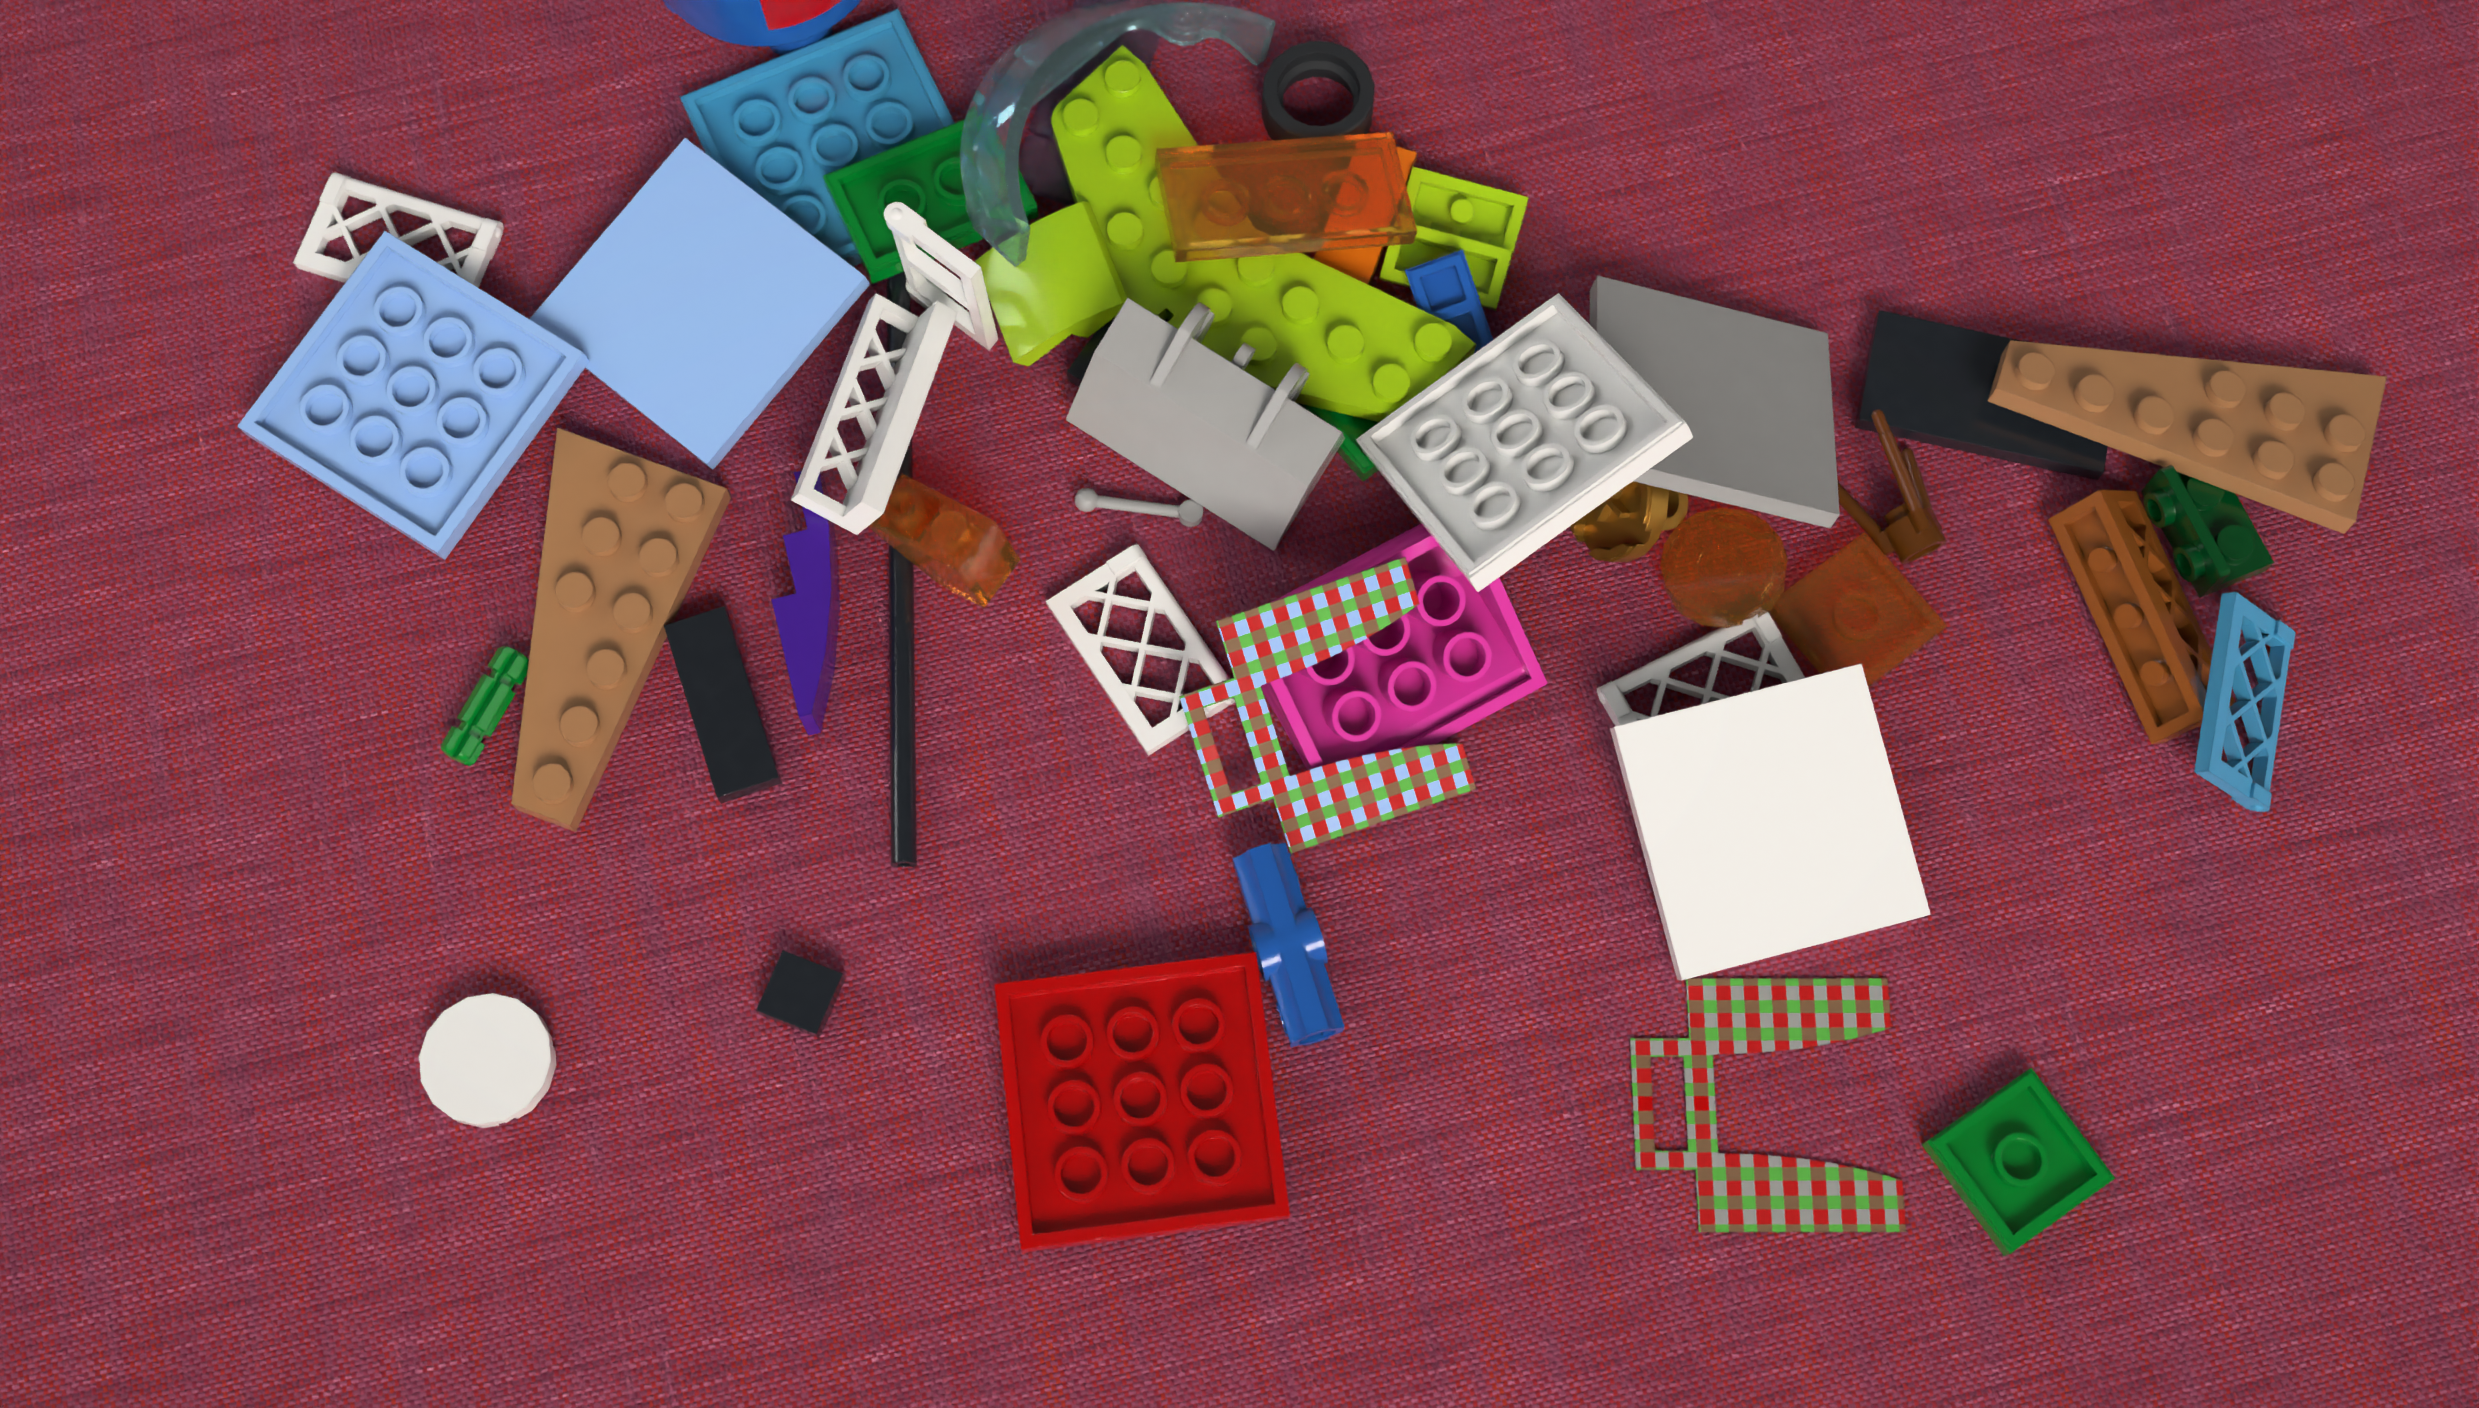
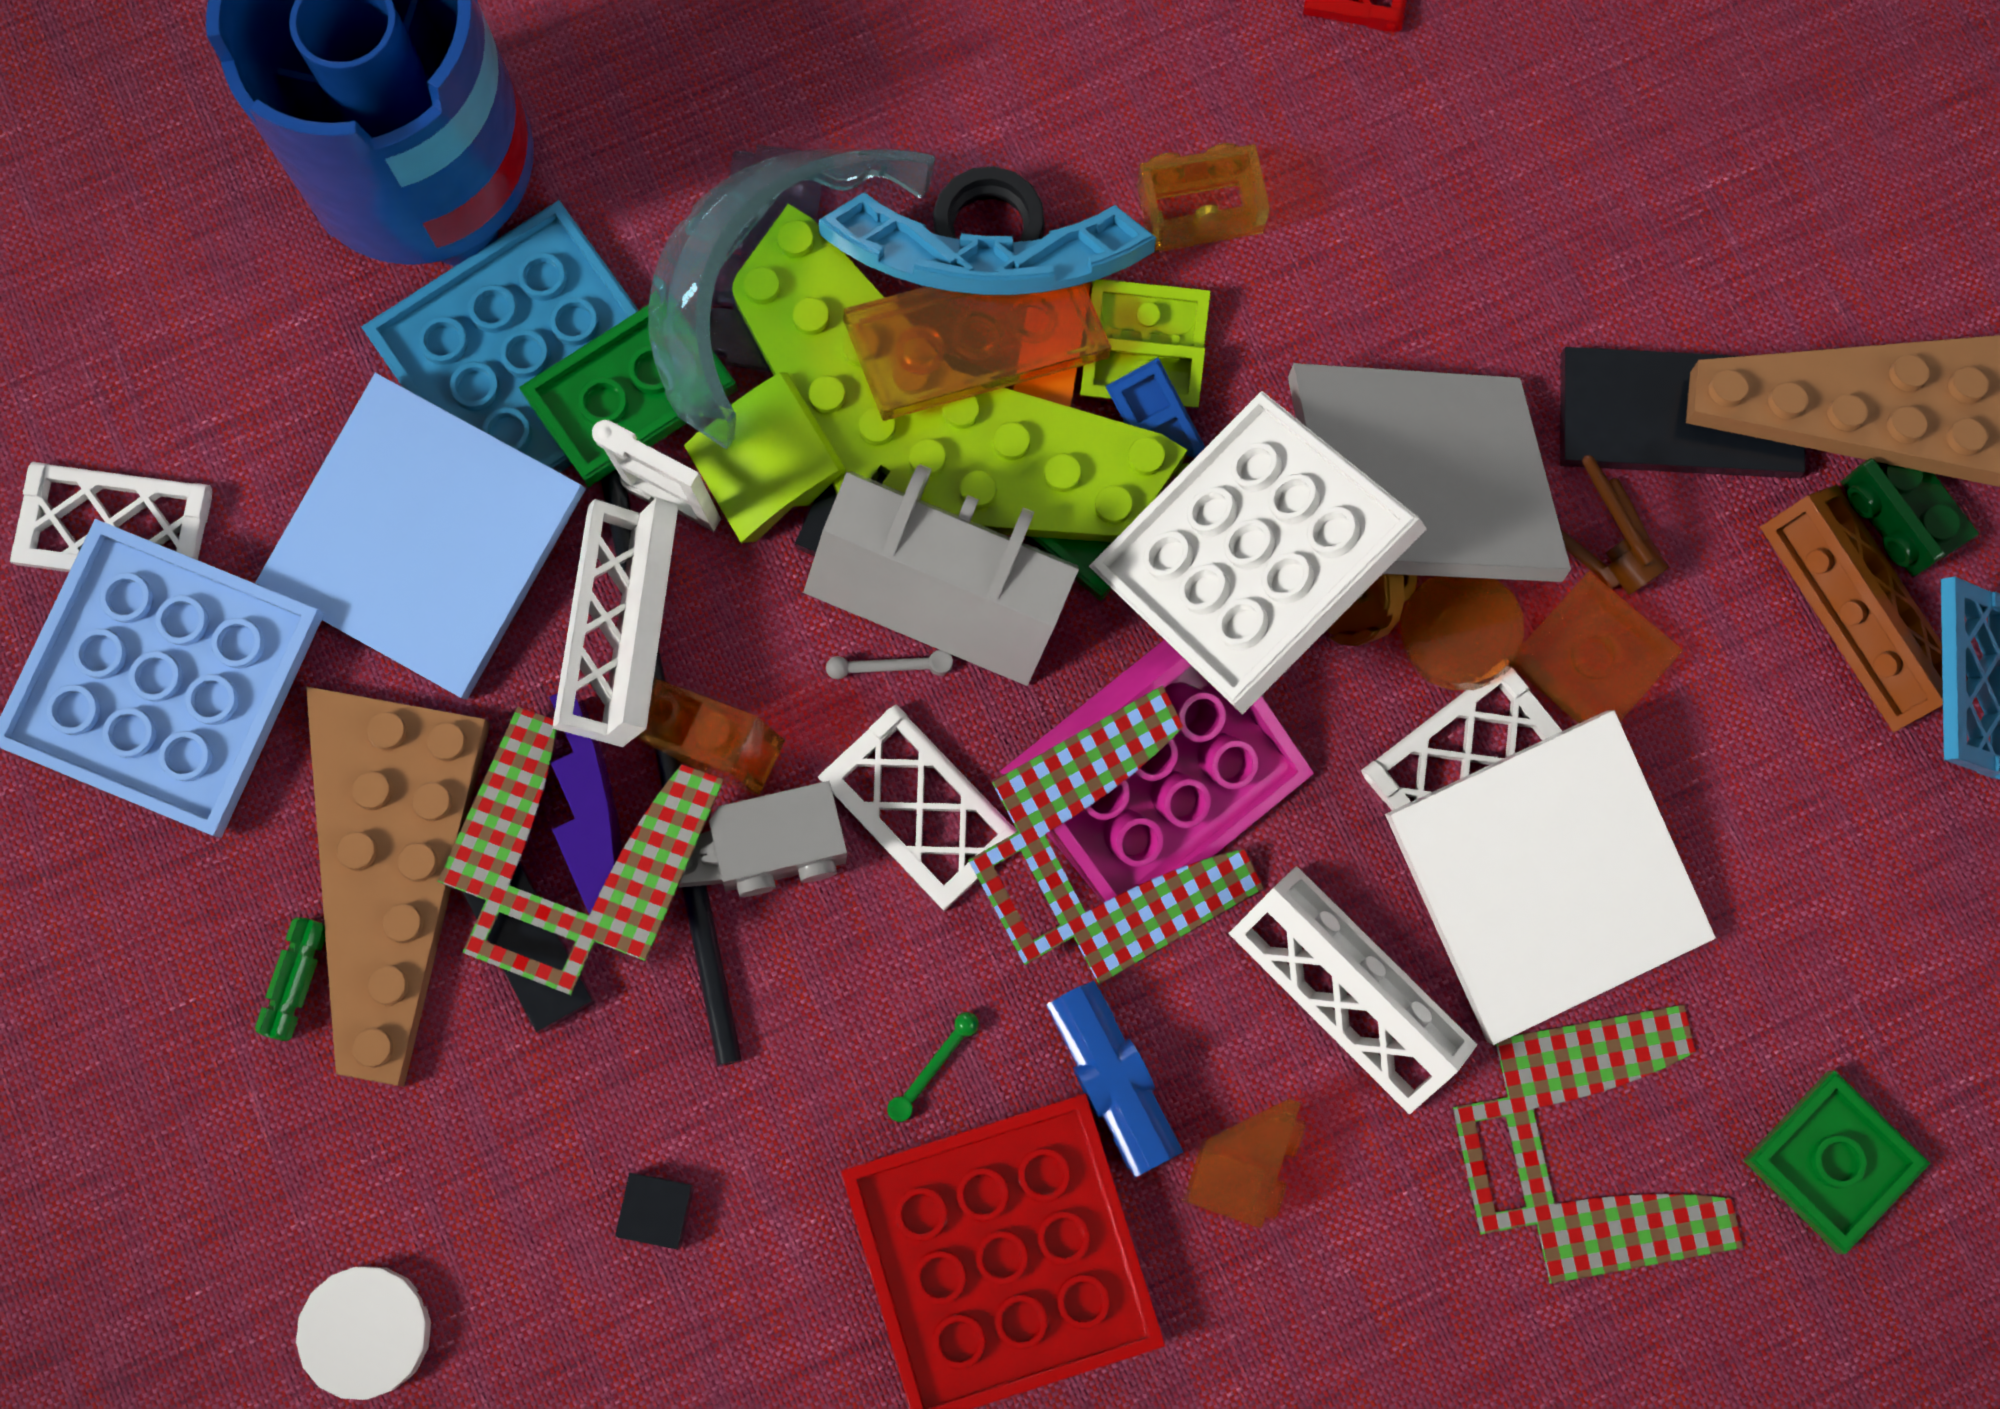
camera: 10 degrees left, 5 degrees up
(838, 676) = (635, 891): none -> piece
(979, 652) = (769, 841): none -> light grey hinge
(1067, 938) = (901, 1108): none -> green hinge
(1306, 129) = (986, 262): none -> dark azure tile
(1399, 1049) = (1241, 1166): none -> clear orange slope
(1537, 83) = (1215, 169): none -> clear yellow window
(1568, 894) = (1371, 980): none -> white fence

